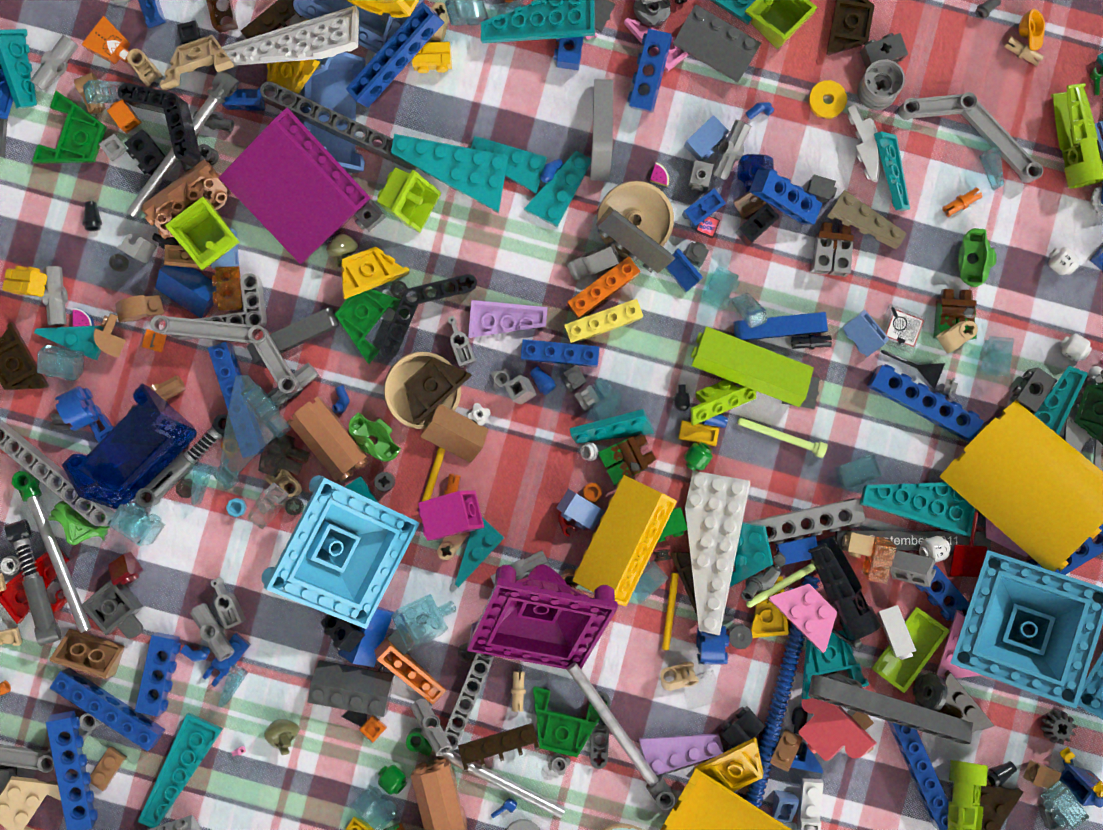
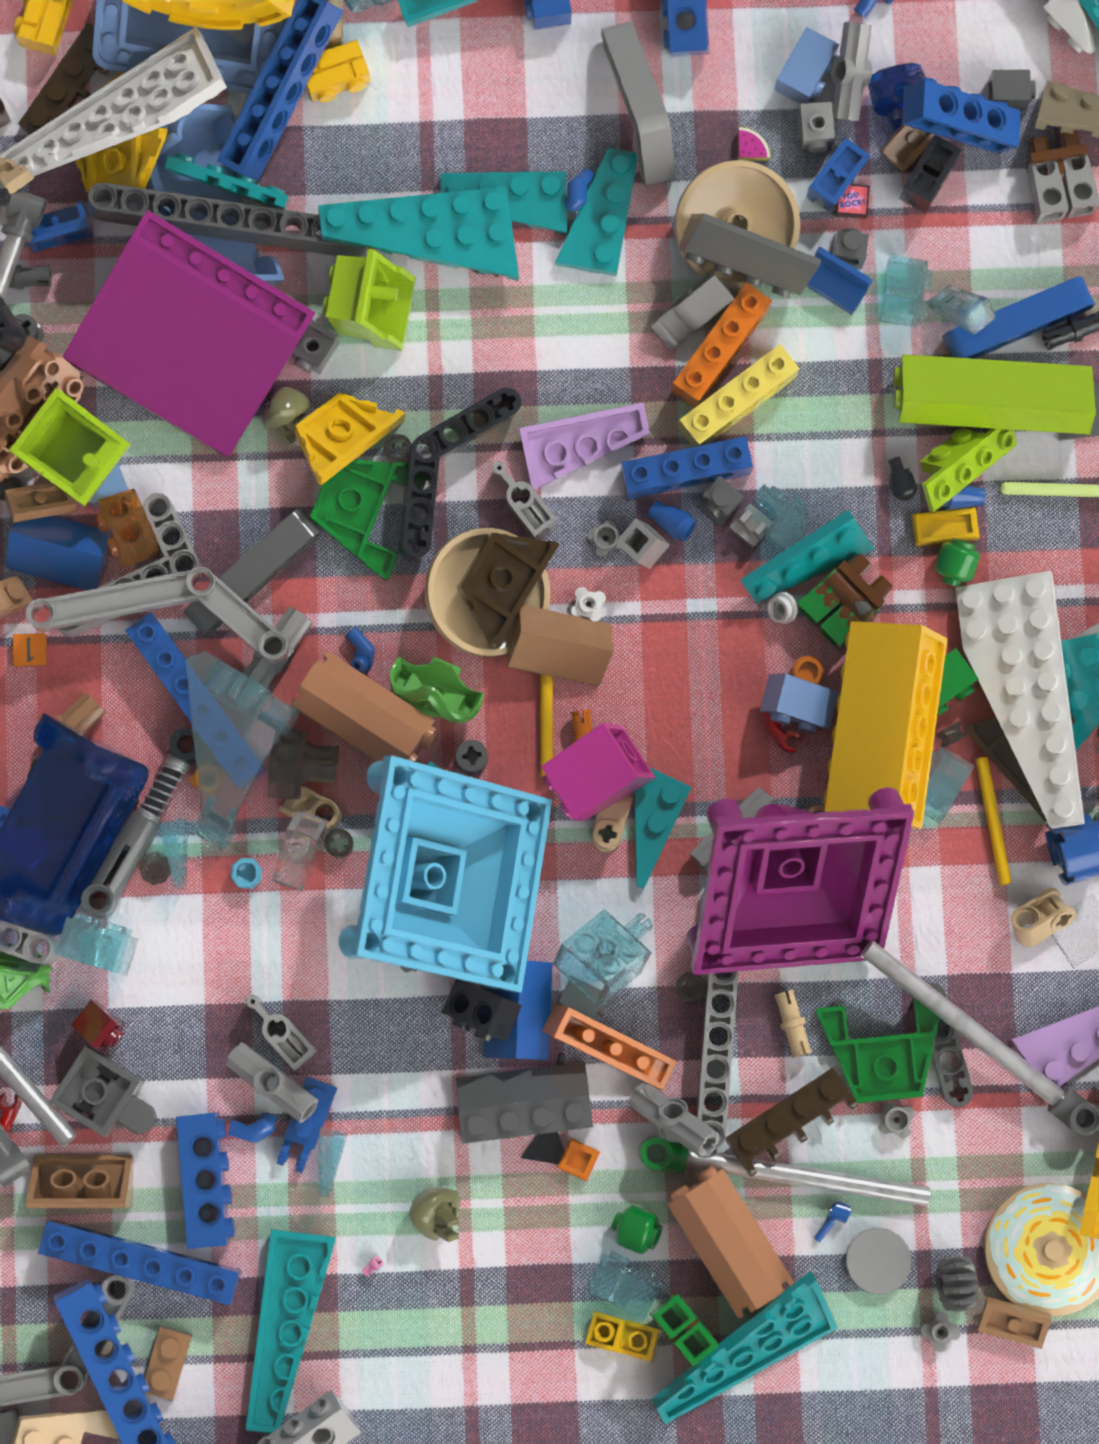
camera: 20 degrees left, 5 degrees down
(342, 98) = (239, 186): none -> teal wing

